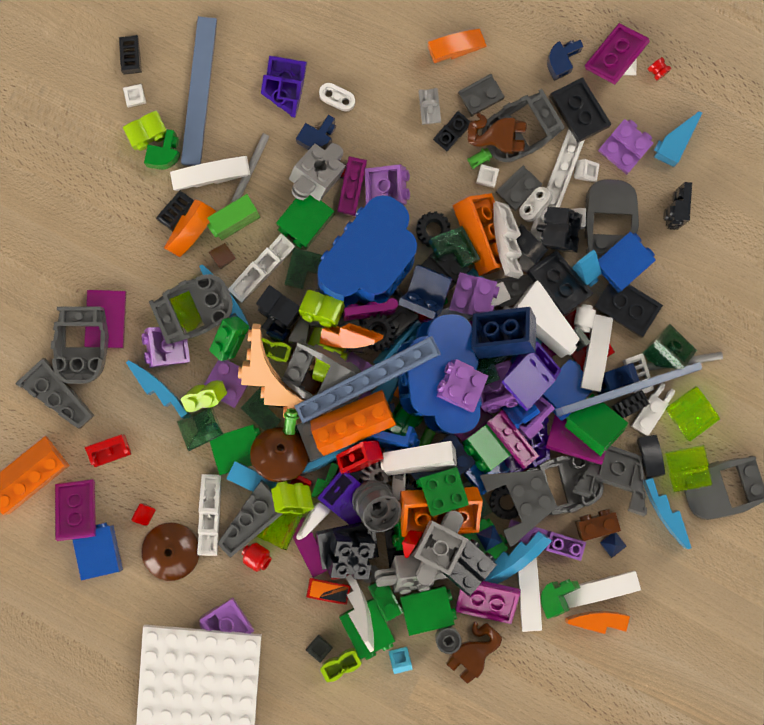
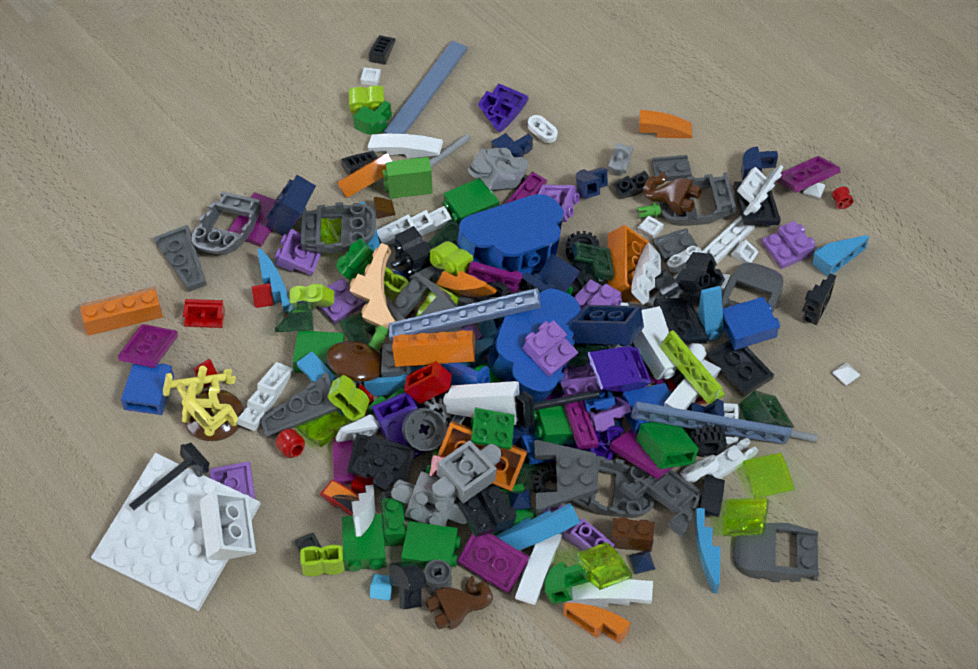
camera: 25 degrees right, 30 degrees down
(136, 305) = (289, 205): none -> dark blue brick
(151, 563) = (195, 406): none -> light yellow piece
(153, 408) = (262, 295): none -> red slope
(182, 623) = (192, 459): none -> black piece
(246, 677) = (227, 525): none -> white slope
(411, 151) = (589, 182): none -> dark blue brick
(424, 654) = (410, 580): none -> black brick
(463, 453) = (526, 405): none -> black piece
(578, 96) = (756, 186): none -> white bracket
(589, 577) = (603, 566): none -> clear neon green slope
(594, 342) = (691, 368): none -> lime fence
(633, 435) = (700, 468): none -> white plate
(725, 273) = (846, 374): none -> white slope

